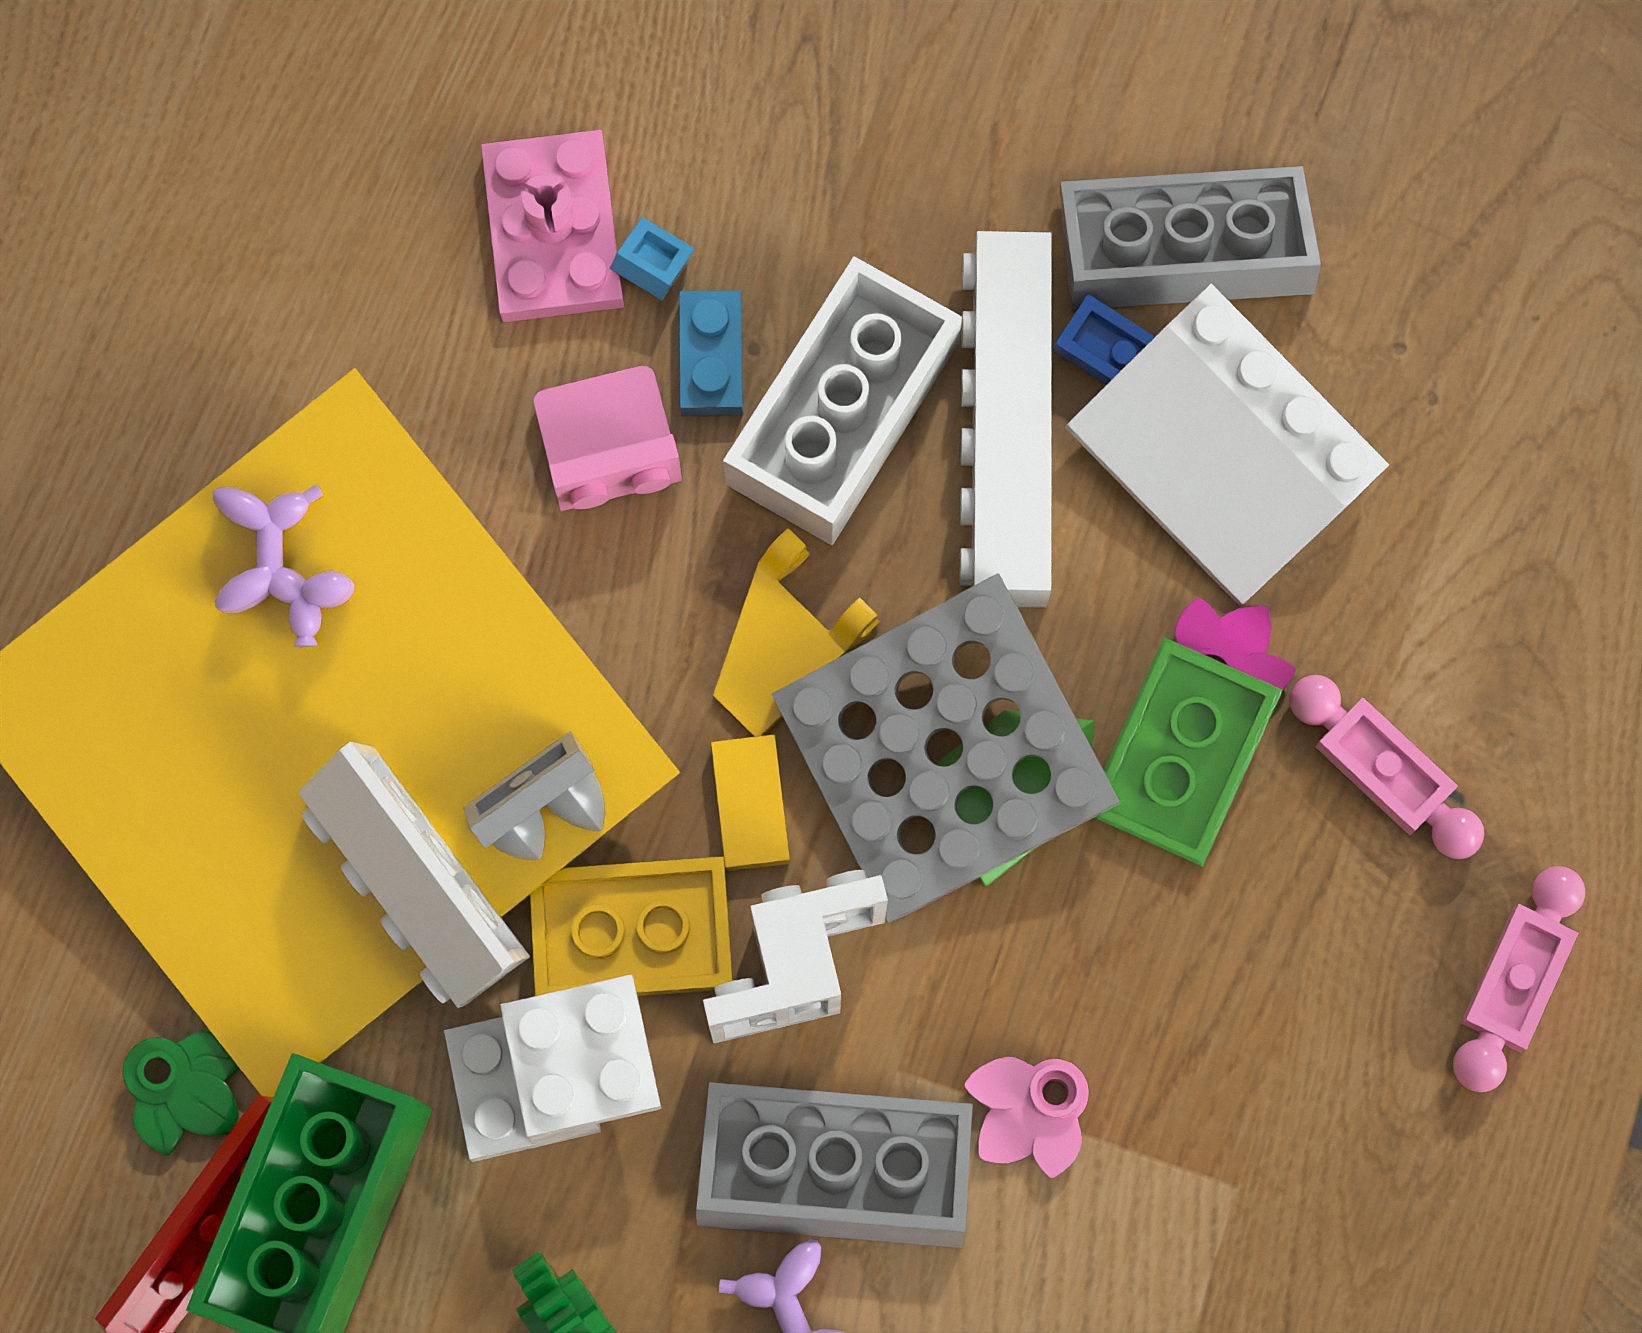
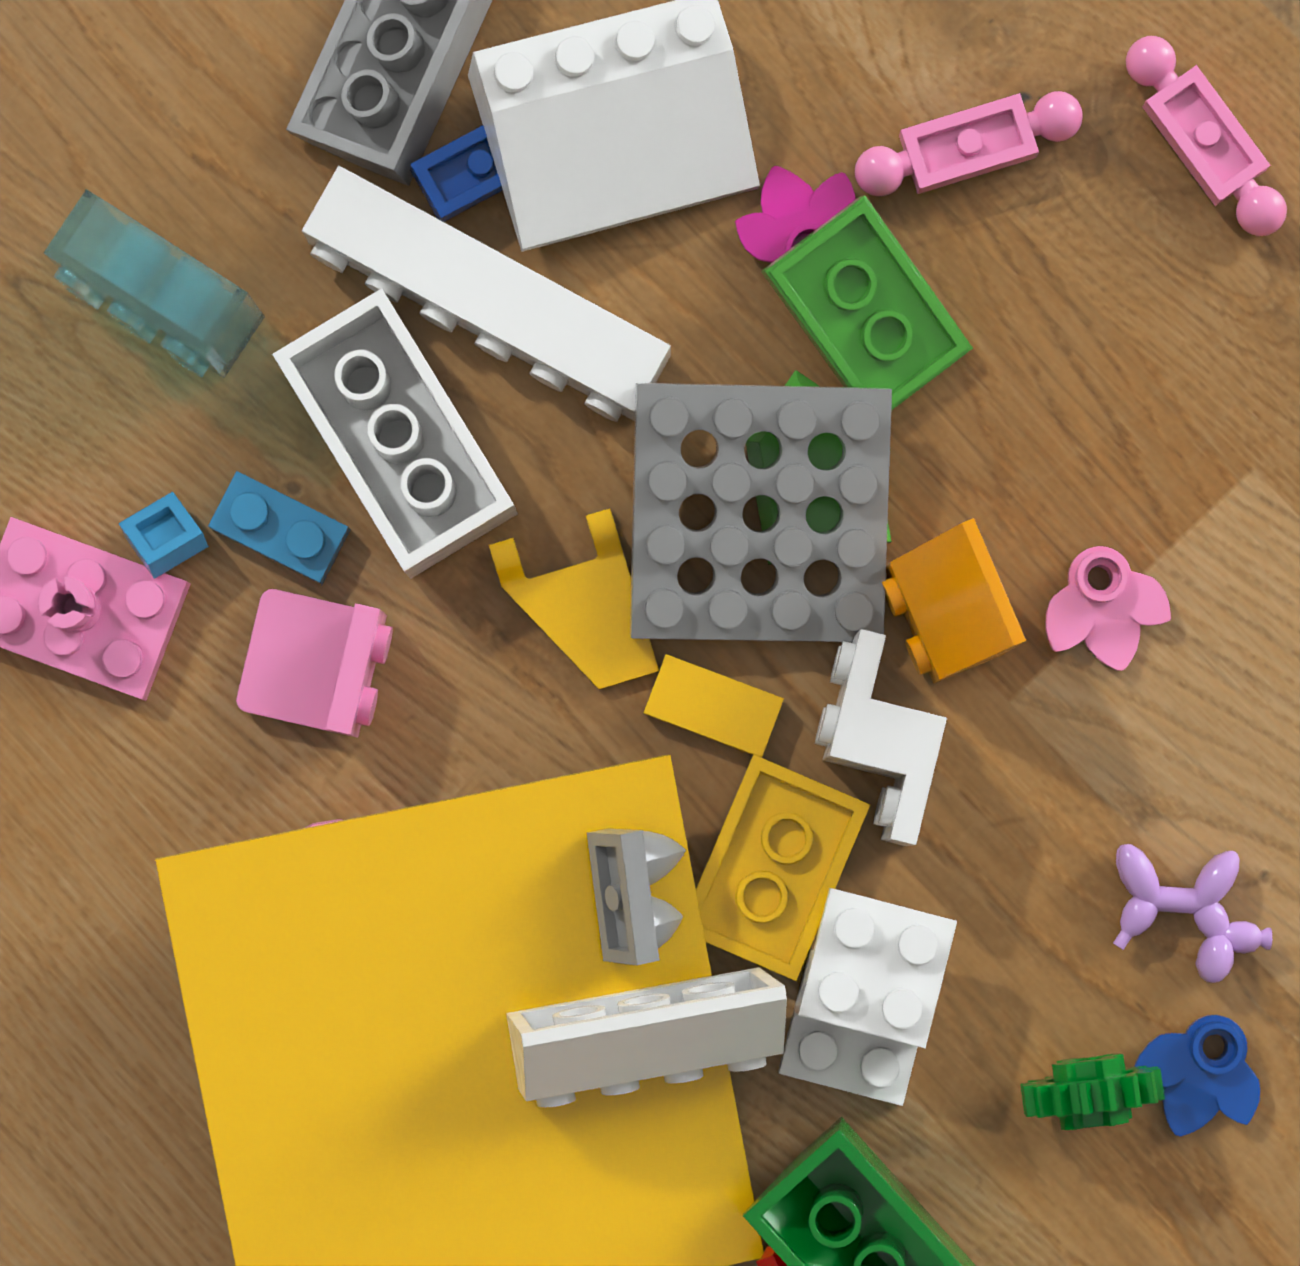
camera: 60 degrees left, 10 degrees up
(270, 577) = (310, 1030): lavender piece -> none
(835, 1165) = (1065, 795): light grey slope -> none
(857, 136) = (152, 287): none -> clear light blue brick
(952, 956) = (952, 603): none -> light orange slope

